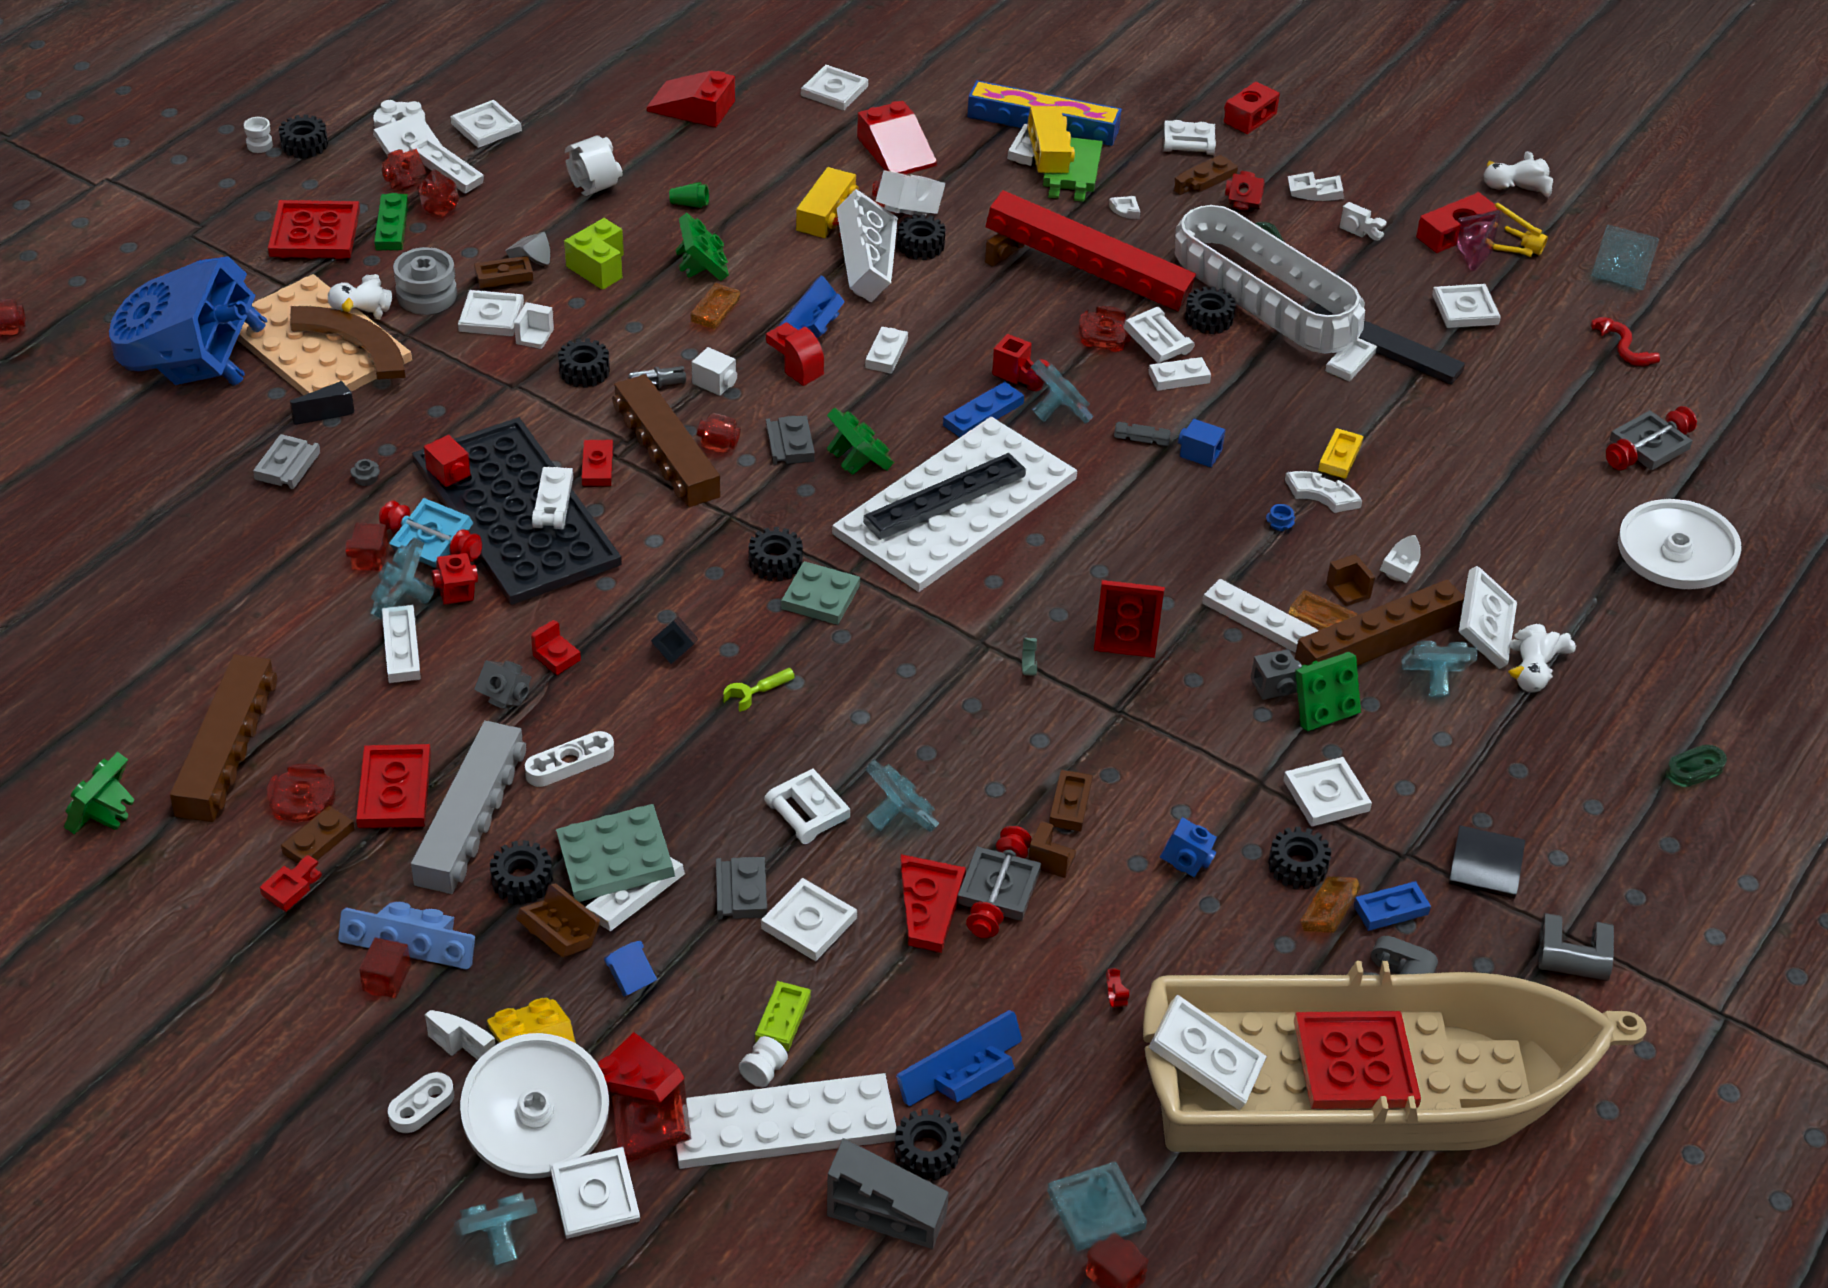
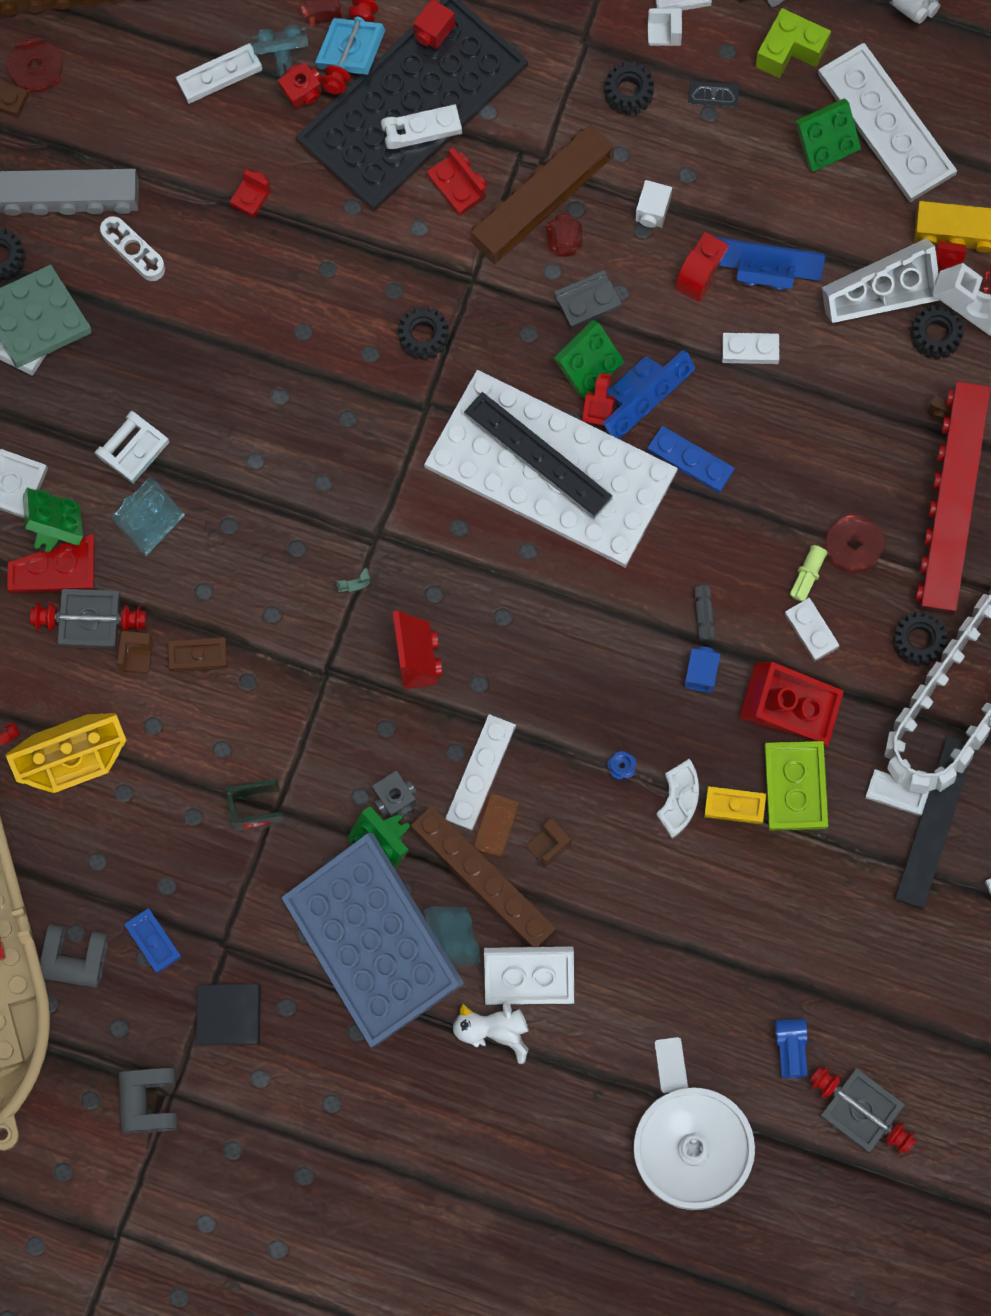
camera: 80 degrees right, 30 degrees up
(394, 786) = (61, 129): red plate -> none
(503, 683) = (189, 168): dark grey brick -> none
(597, 463) = (499, 147): red plate -> none
(615, 319) = (713, 94): none -> black sticker
(620, 495) = (458, 182): none -> red bracket
(663, 376) = (631, 158): dark grey axle -> none
(674, 639) = (288, 284): black panel -> none
(690, 195) = (923, 97): green cone -> none
(715, 306) = (755, 174): clear orange plate -> none
(721, 216) = (887, 122): none -> white plate
(741, 887) = (34, 422): dark grey plate -> none
(745, 692) = (263, 372): lime piece -> none
(820, 593) = (391, 385): sand green plate -> none
(869, 871) = (51, 518): none -> green plate
(896, 419) = (644, 389): none -> blue bracket
(907, 446) = (599, 405): none -> red plate
(1013, 362) = (756, 474): red brick -> none
(1060, 393) = (719, 522): clear light blue plate -> none
(1124, 361) = (808, 573): none -> yellowish green axle
(1153, 919) = (68, 752): none -> yellow wedge
(1158, 335) = (846, 590): white plate -> none
(1189, 847) = (161, 750): blue brick -> none
(1246, 793) = (249, 790): none -> clear green piece
(1248, 398) = (791, 703): none -> red slope
(1294, 871) = (190, 872): black tyre -> none
(1327, 791) = (270, 866): white plate -> none
(1328, 409) = (796, 786): none -> lime plate
(1330, 904) = (137, 889): clear orange plate -> none
(1402, 559) = (587, 886): white plate -> none
(1433, 713) = (372, 940): none -> sand blue plate
(1575, 467) = (791, 1039): none -> blue piece
(1586, 556) = (671, 1064): none -> white sticker
(1696, 765) = (400, 1190): clear green plate -> none

